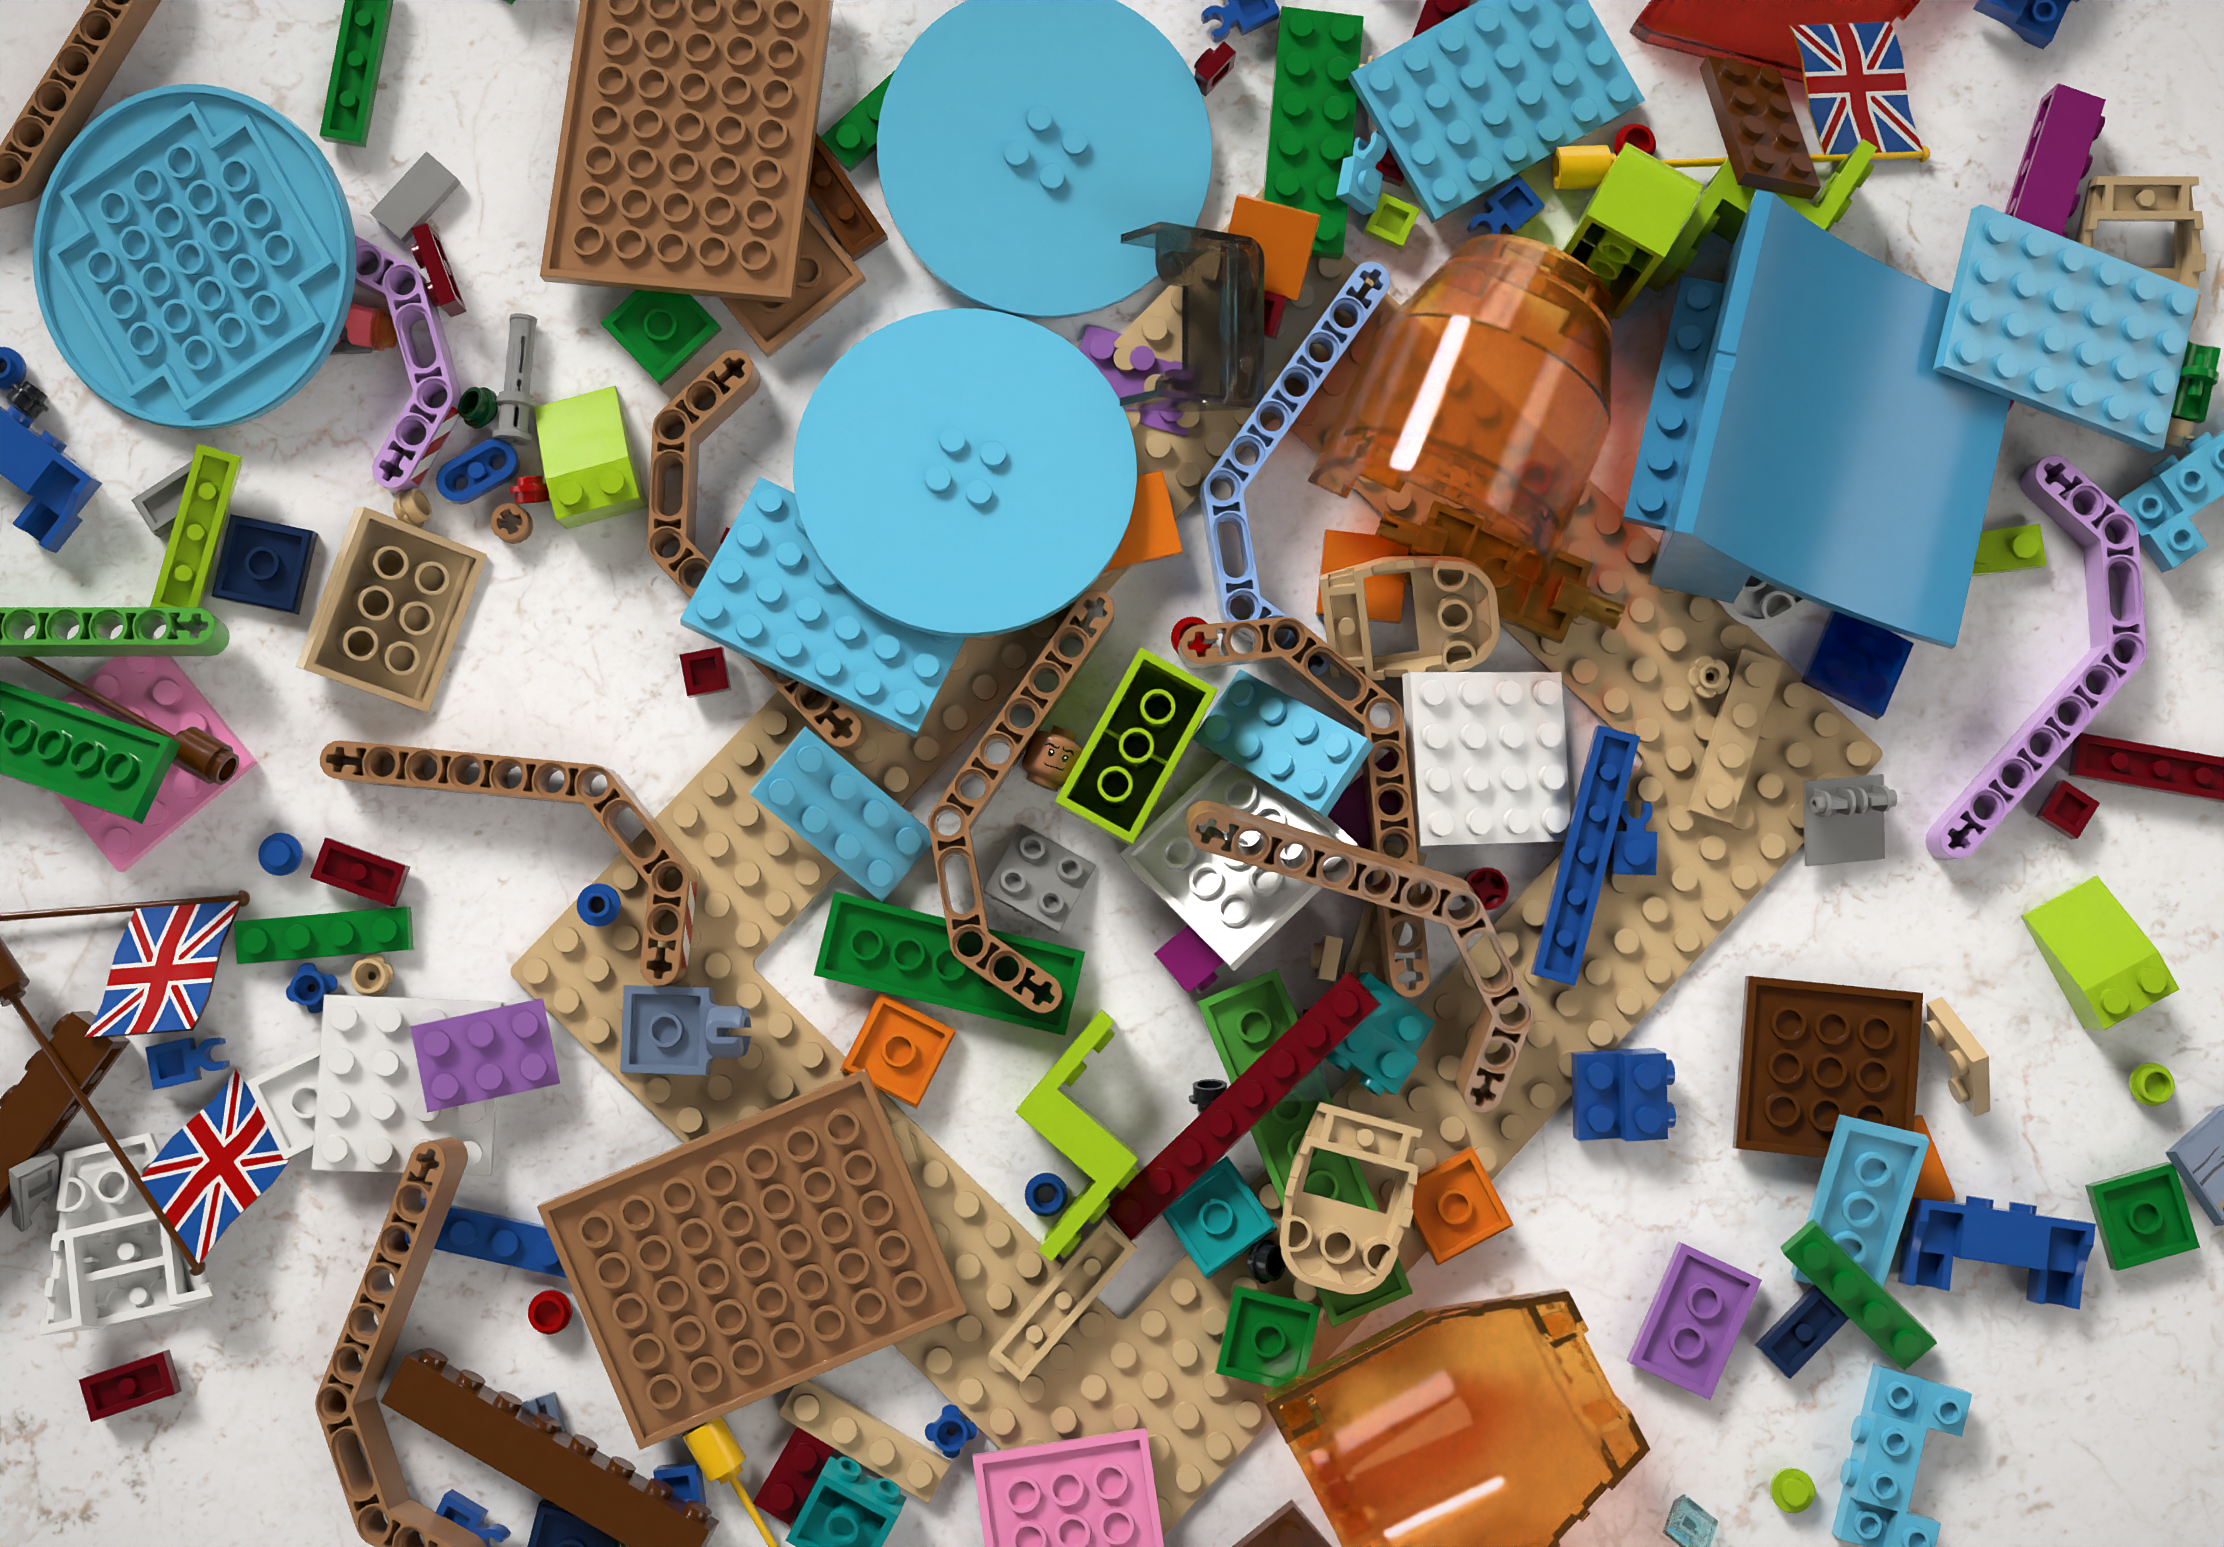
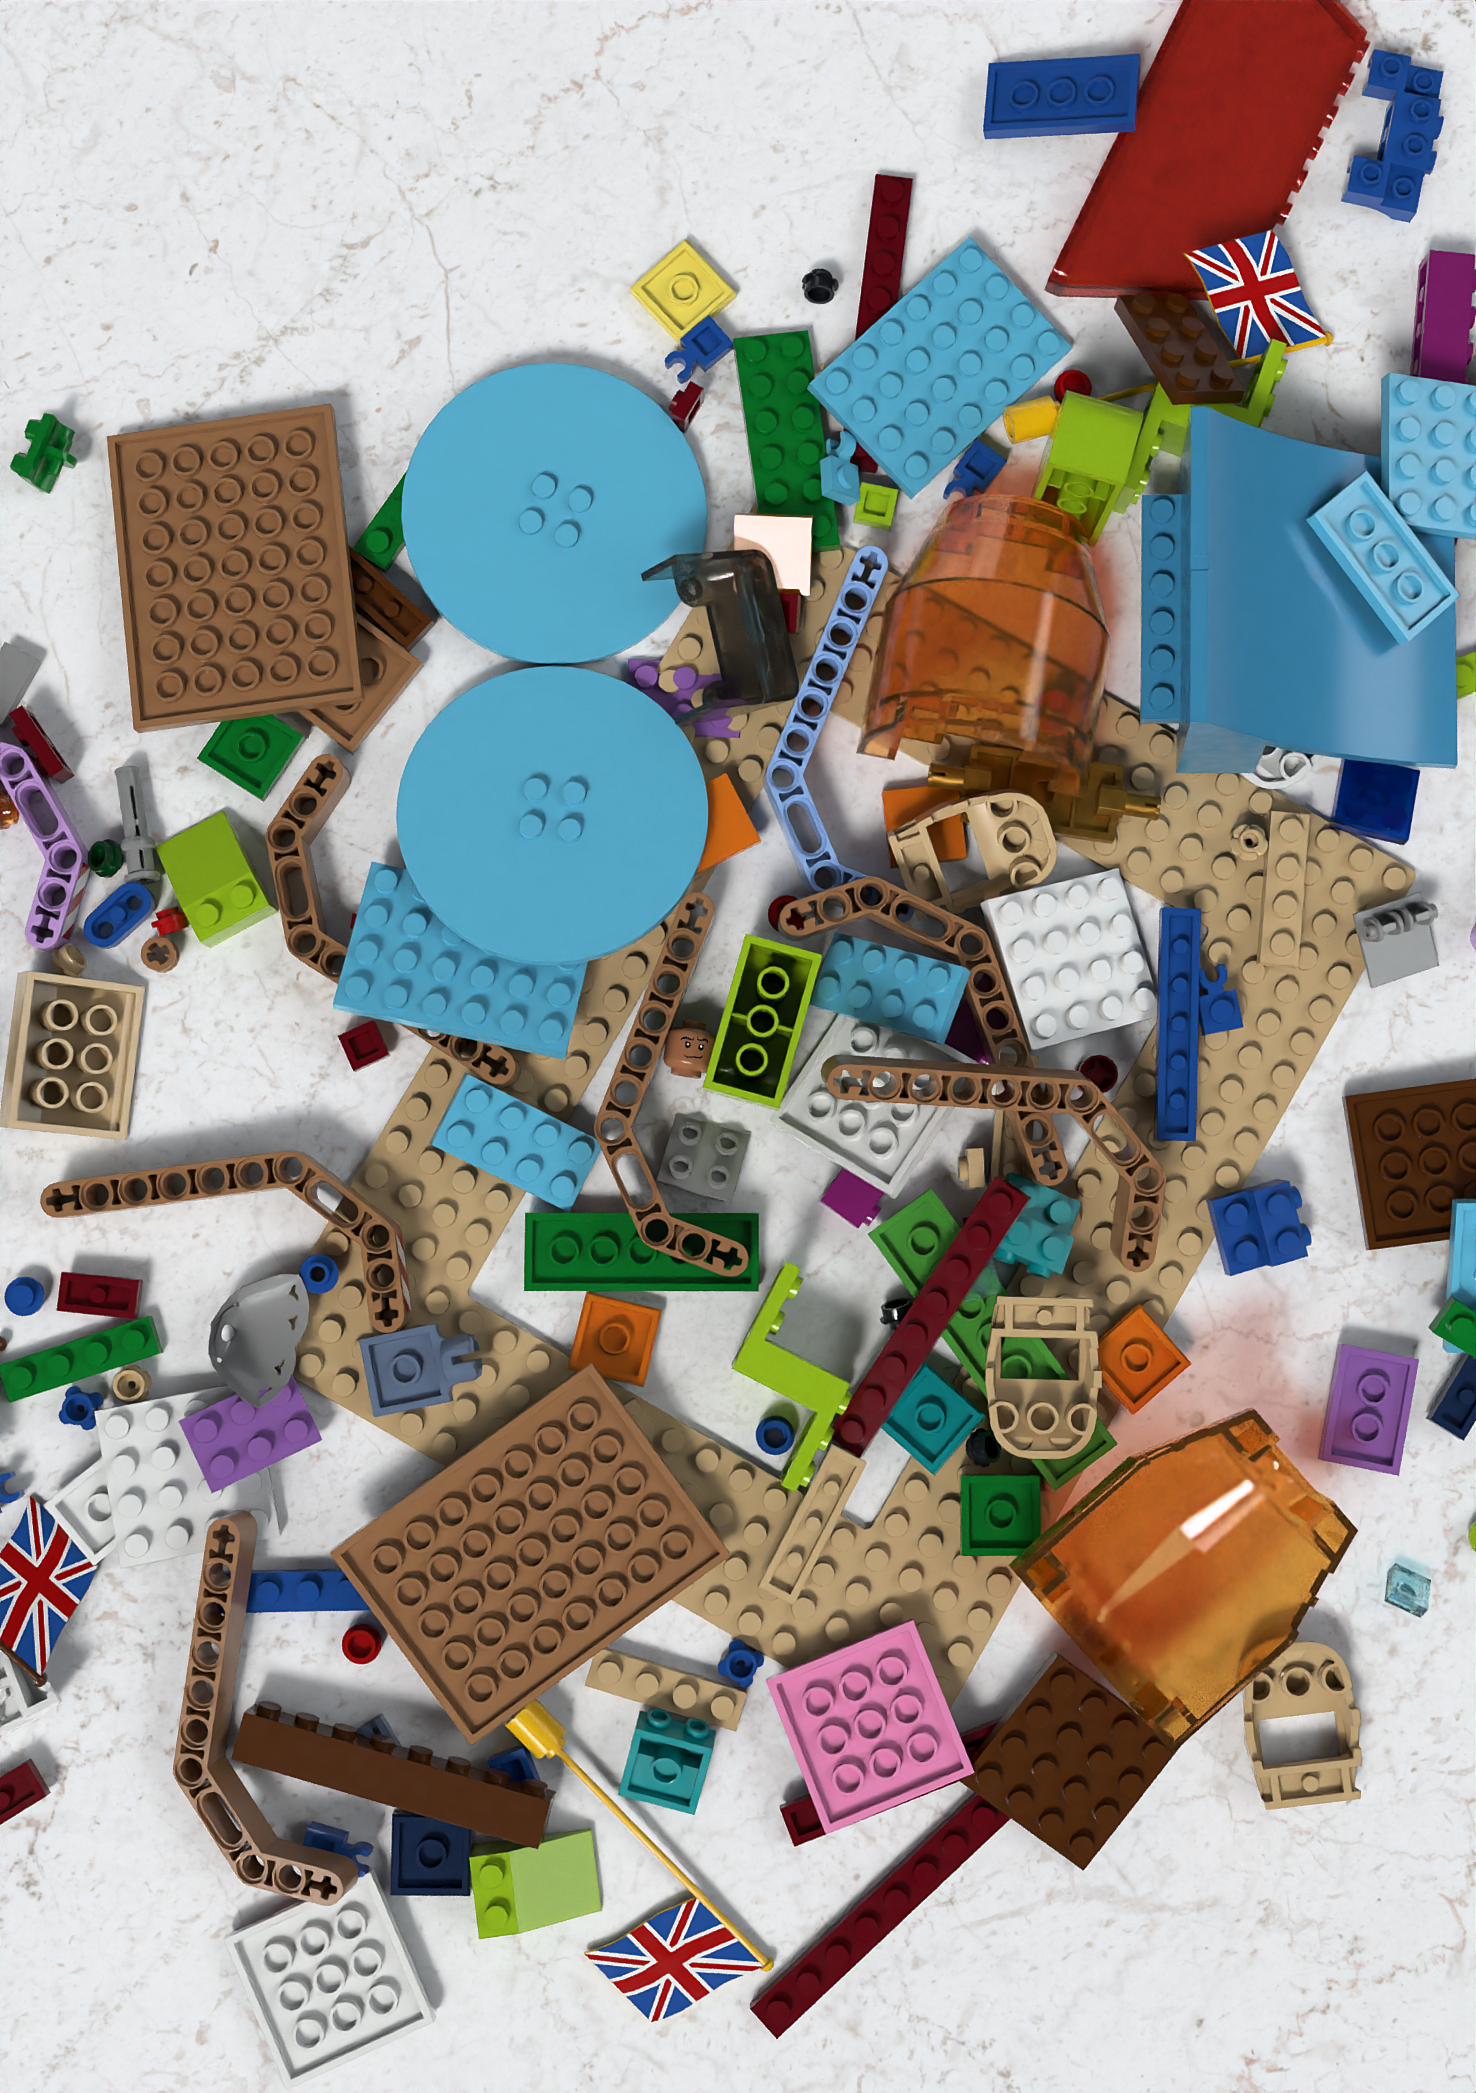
camera: 15 degrees left, 0 degrees up
(520, 958) = (260, 1337): none -> light grey piece
(793, 1475) = (611, 1736): dark red plate -> none
(1927, 403) = (1383, 558): none -> medium azure plate

